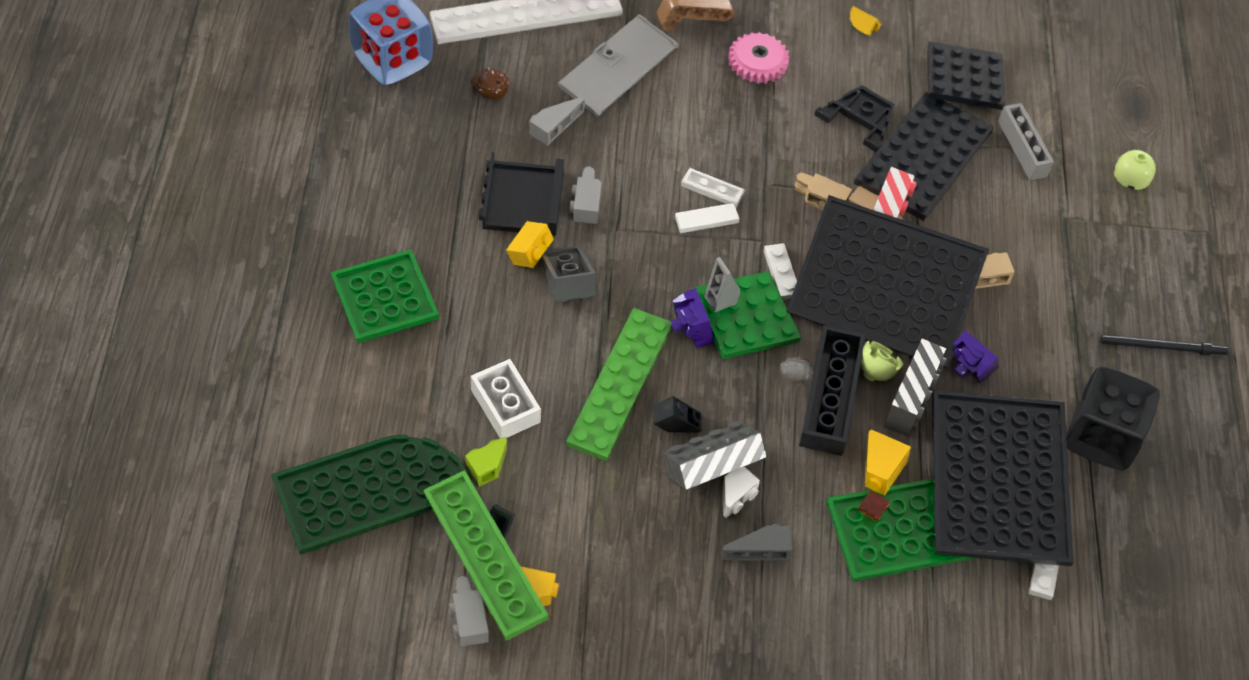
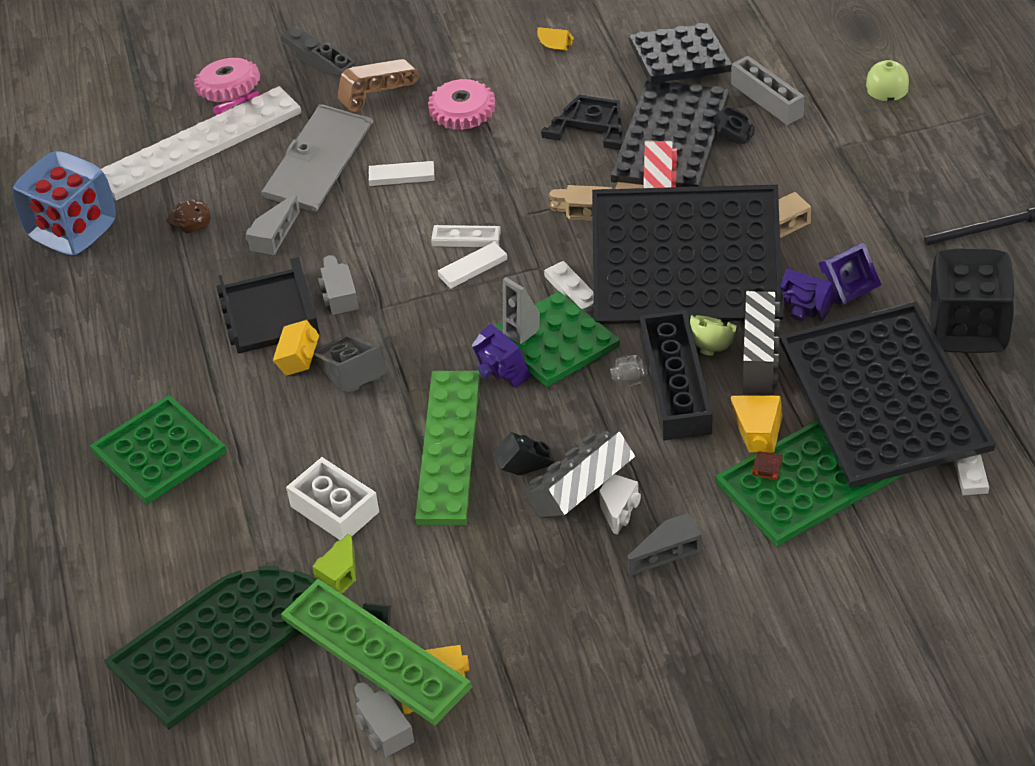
camera: 10 degrees left, 10 degrees down
(682, 106) = (401, 173): none -> white tile
(982, 165) = (733, 125): none -> black tile
(1020, 351) = (850, 273): none -> dark purple brick

